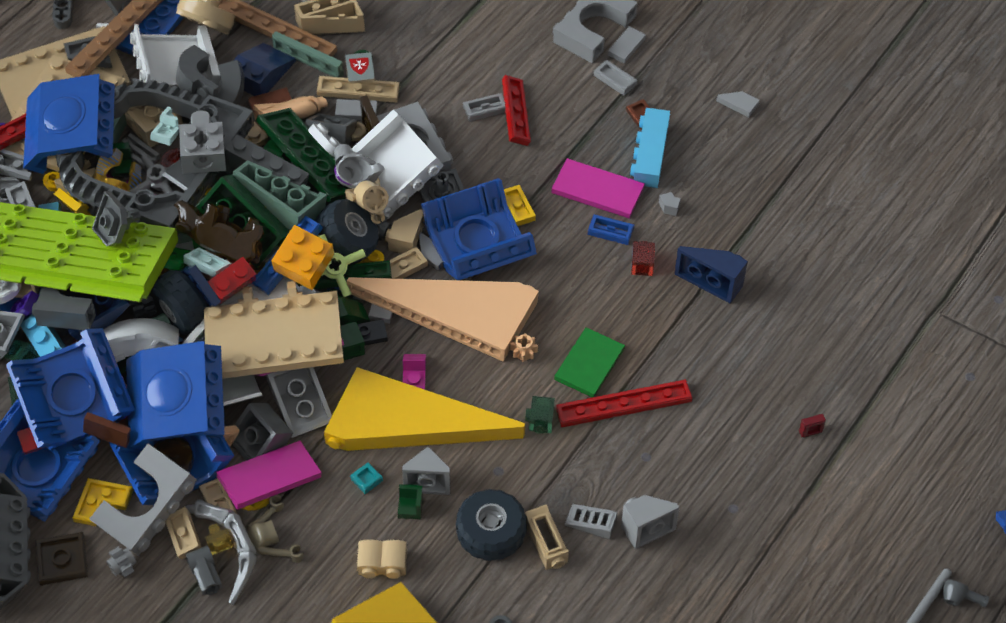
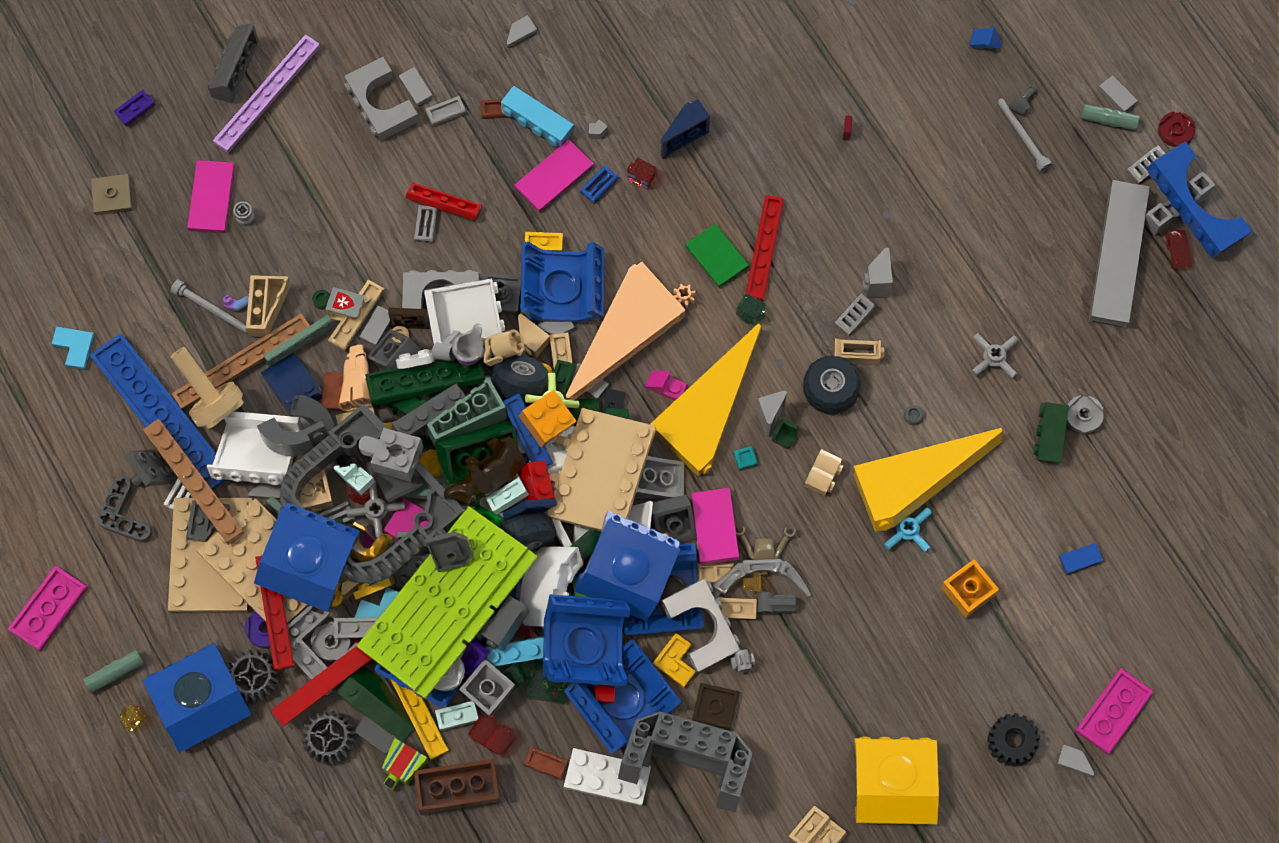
camera: 65 degrees left, 15 degrees up
(106, 430) = (631, 628): copper tile -> none

